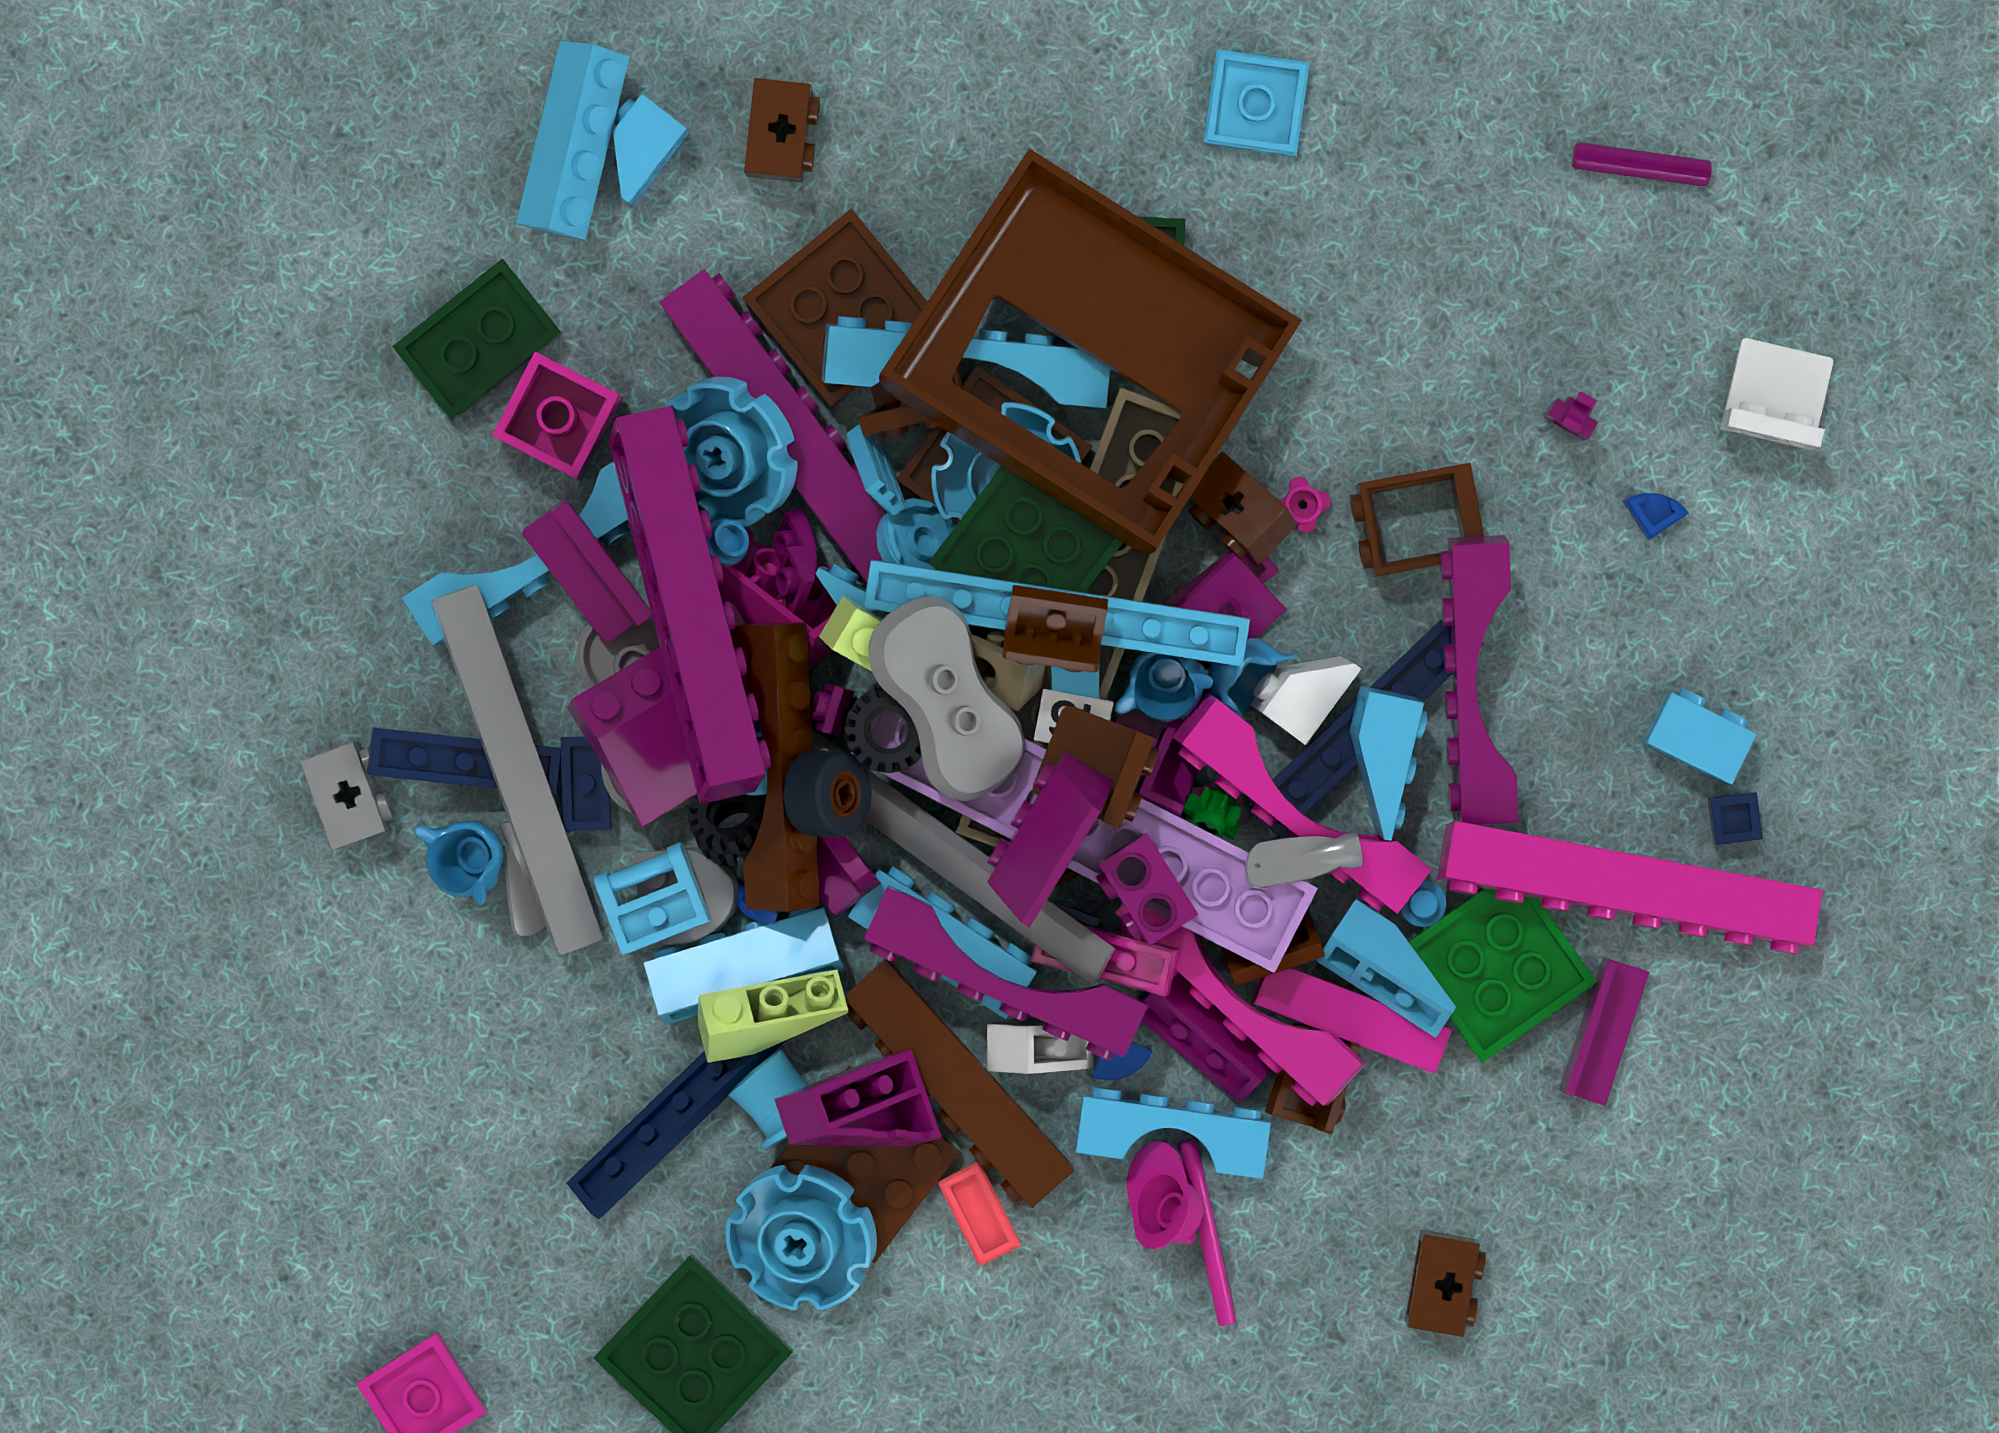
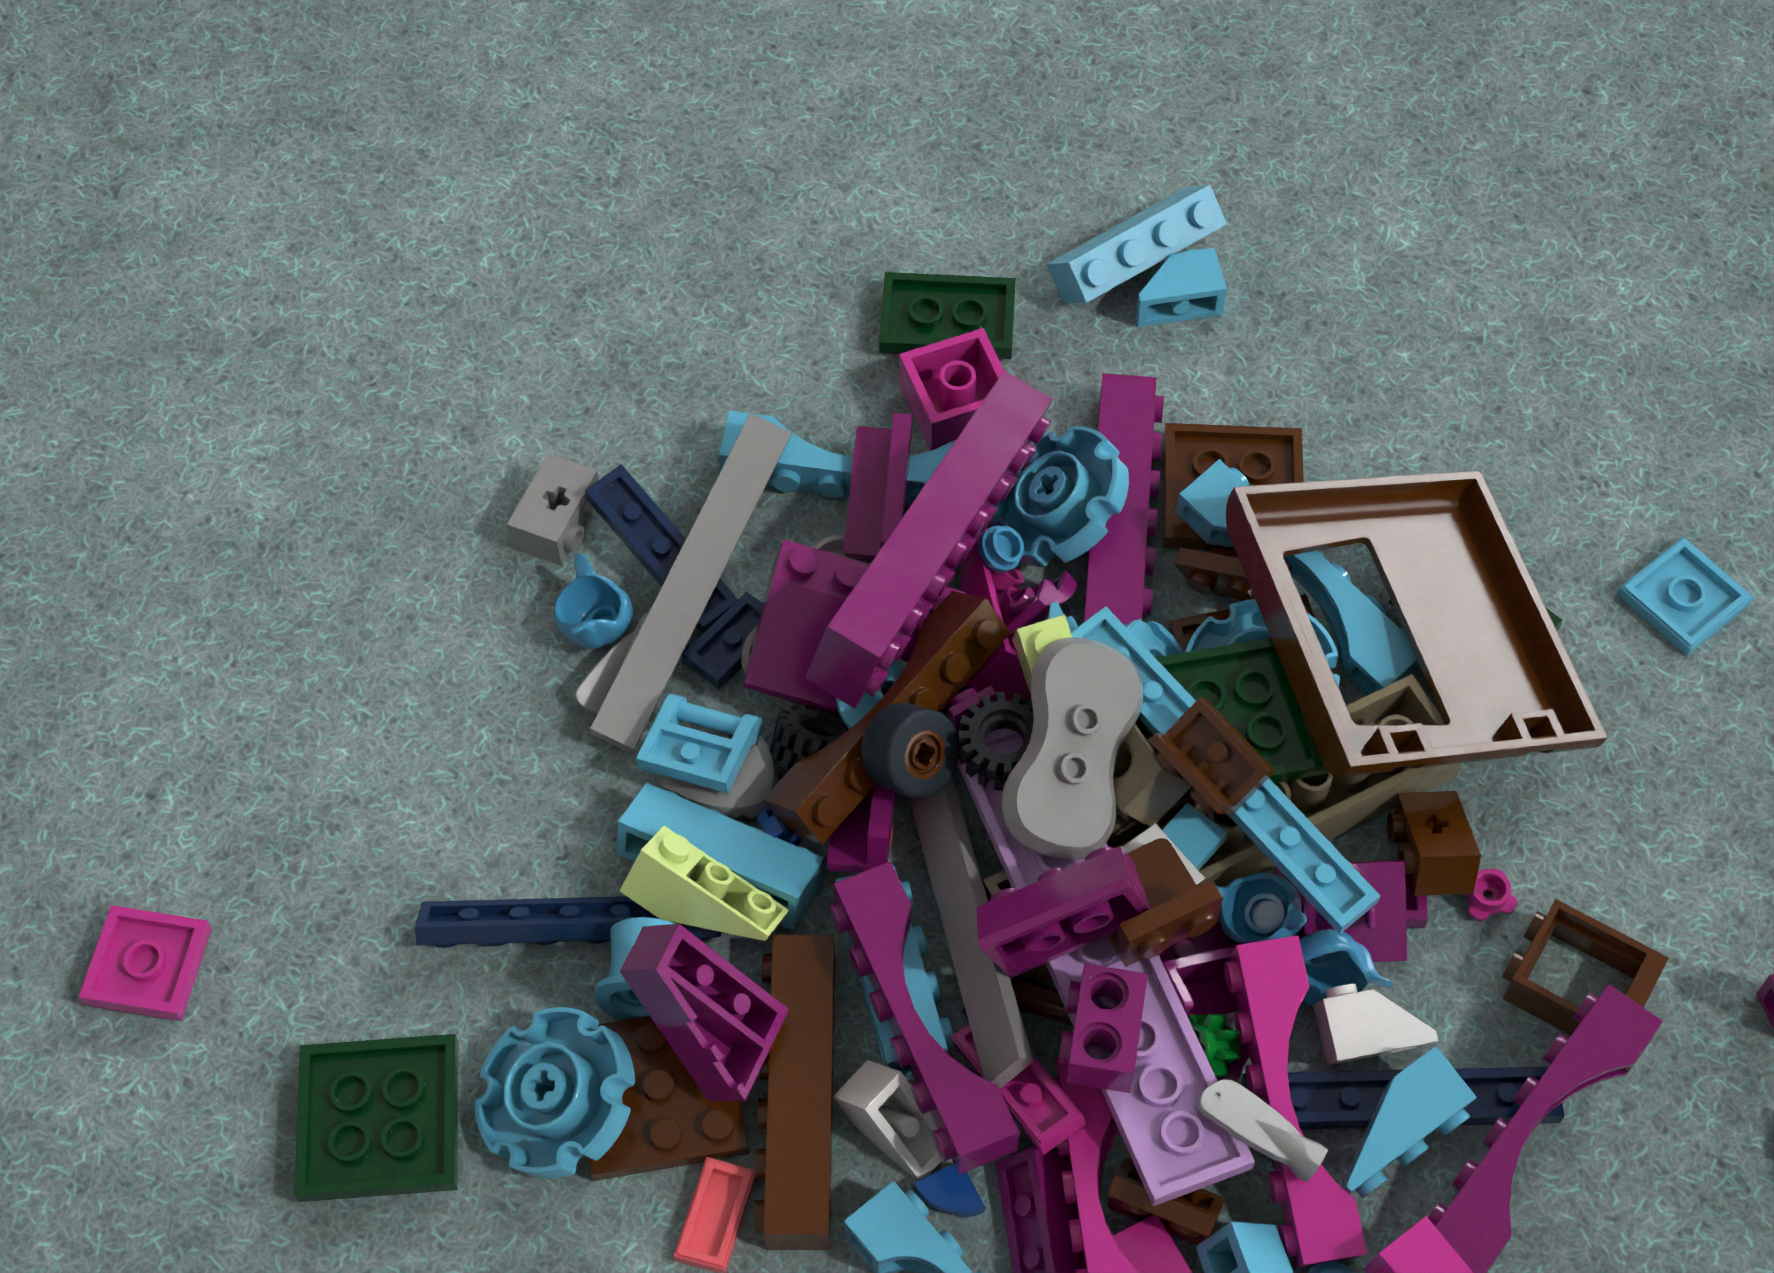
camera: 45 degrees right, 30 degrees down
(771, 103) = (1292, 347): reddish brown brick -> none
(876, 471) = (1157, 602): medium azure tile -> none

